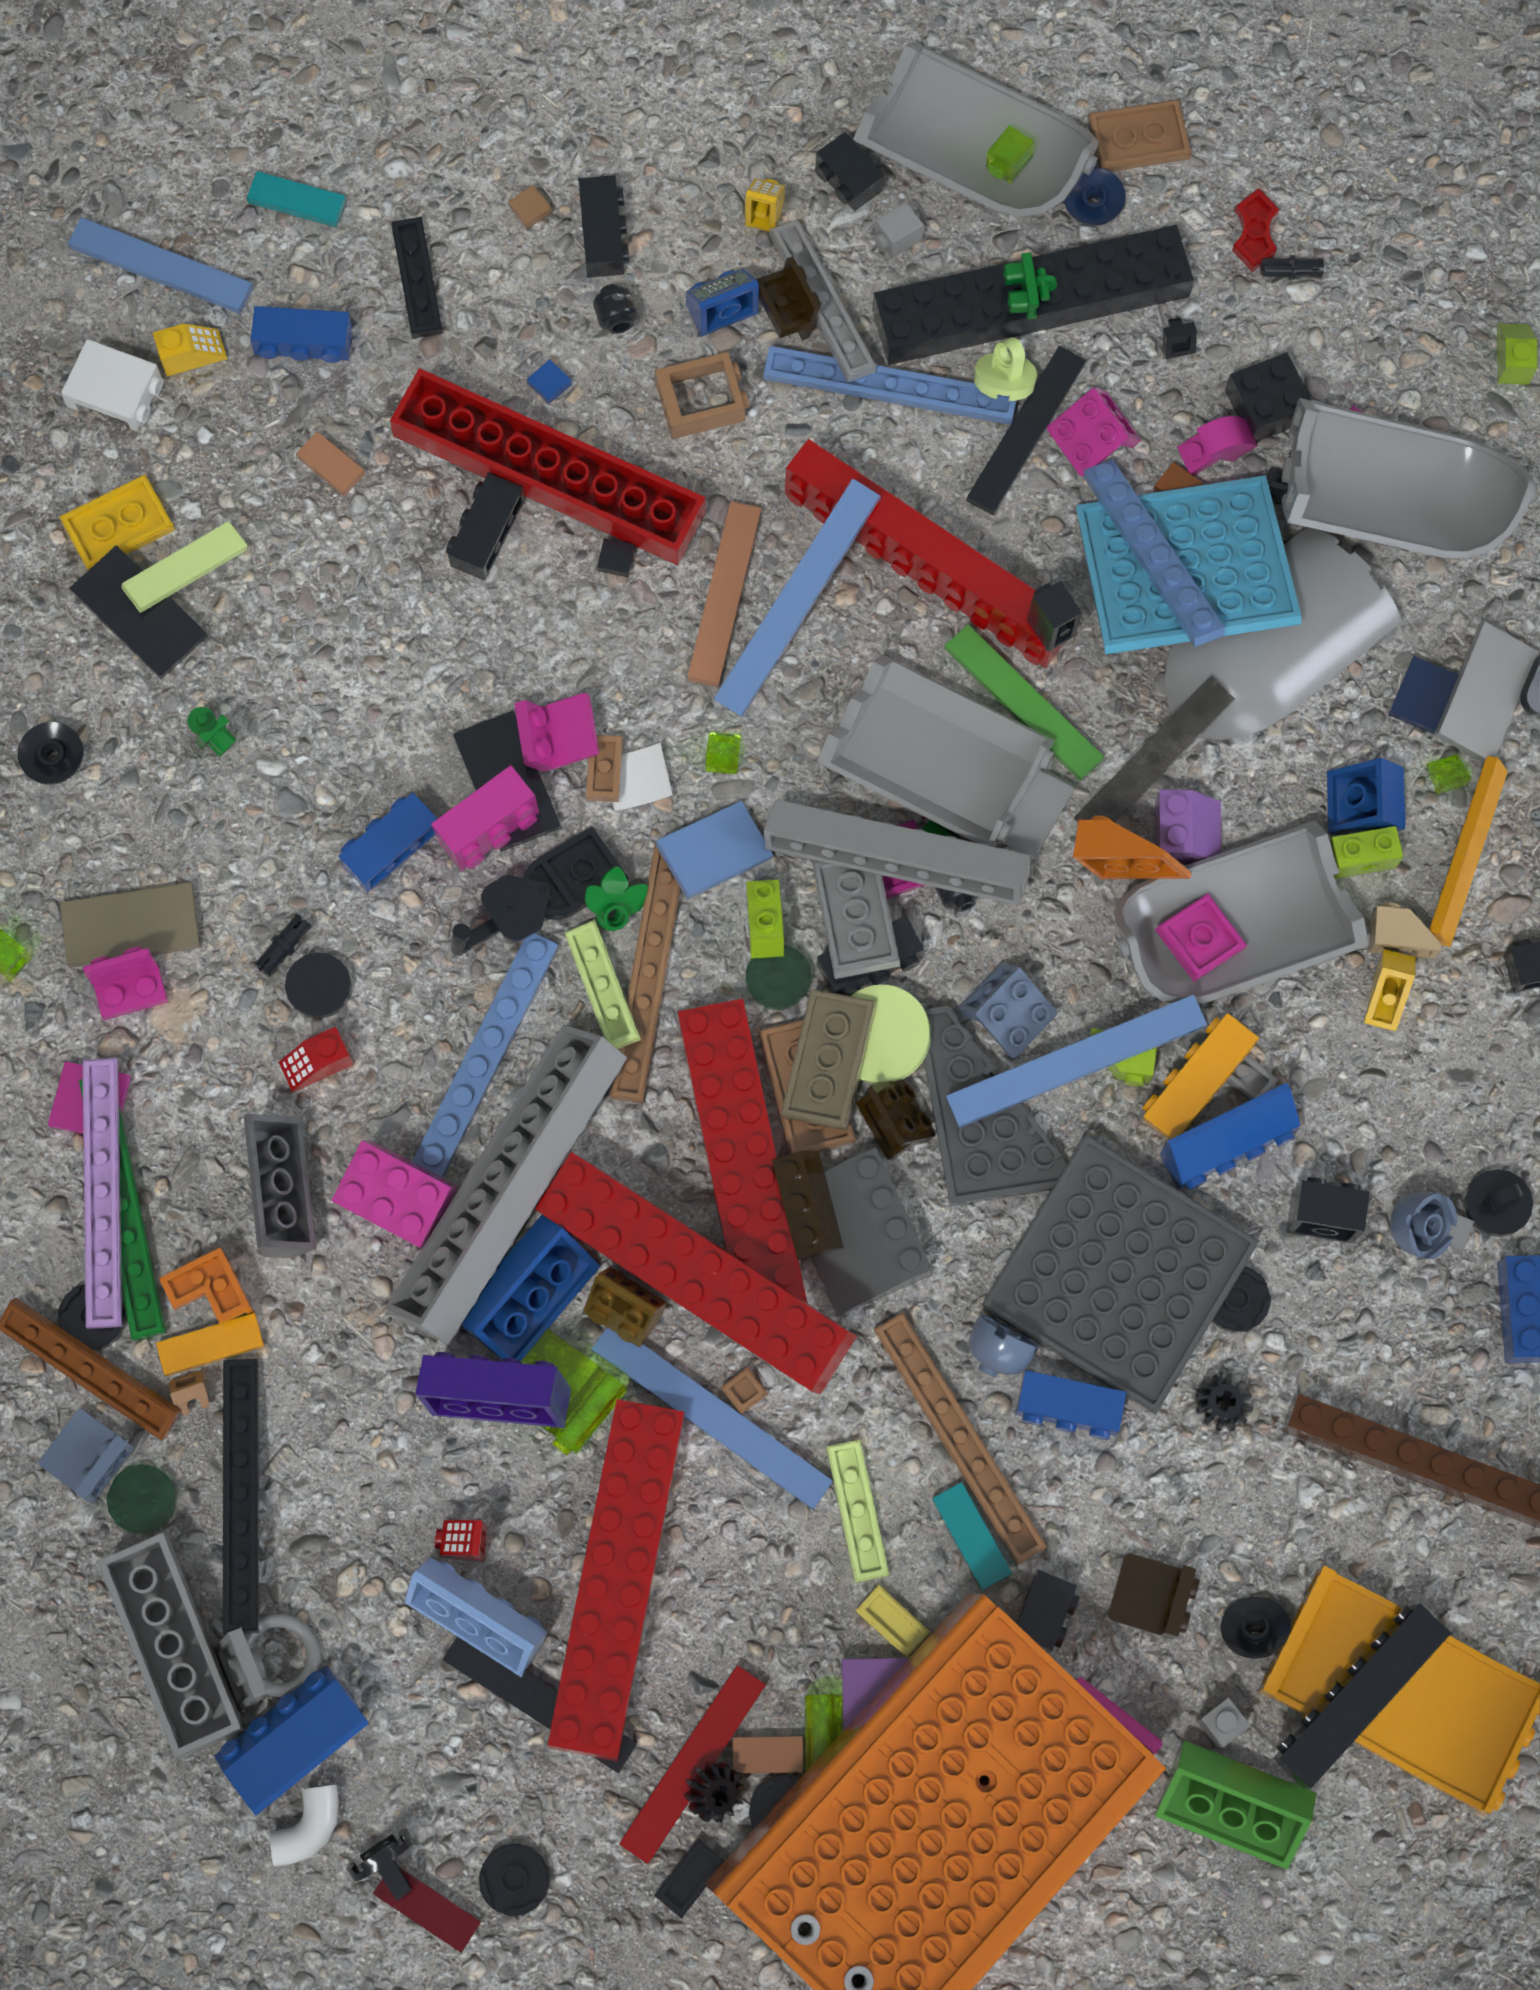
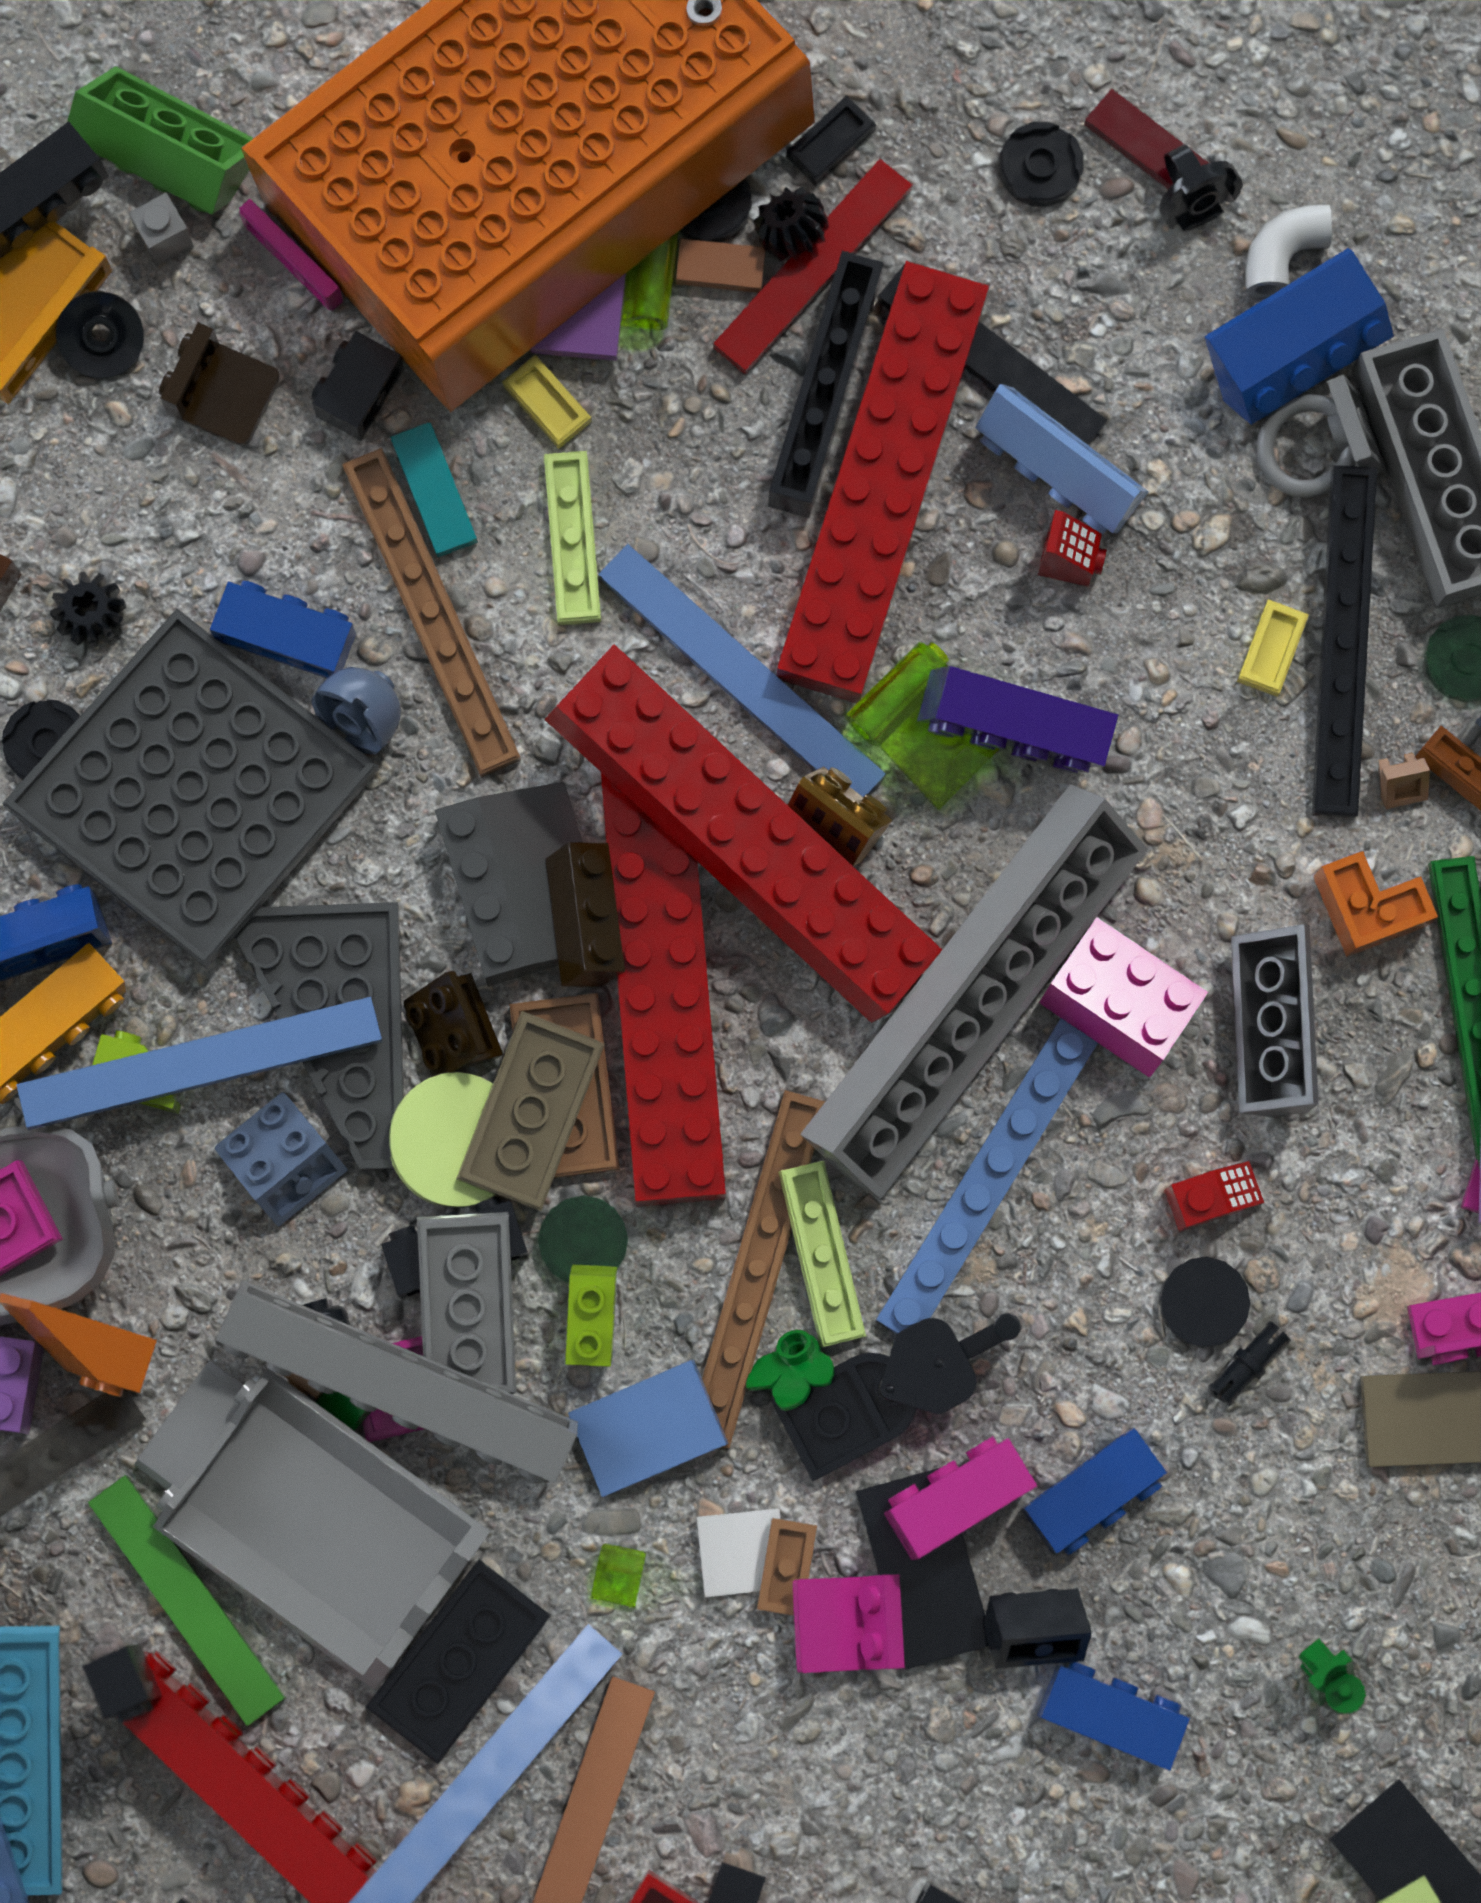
camera: 175 degrees left, 5 degrees up
(210, 1344) = (1378, 836): light orange tile -> none
(297, 1488) = (1272, 648): none -> light yellow tile
(364, 695) = (1114, 1714): none -> blue brick
(423, 742) = (1037, 1628): none -> black brick
(529, 1290) = (960, 852): blue slope -> none
(671, 1655) = (825, 384): none -> black brick
(744, 1391) = (699, 698): medium nougat tile -> none
(825, 683) = (458, 1661): none -> black tile

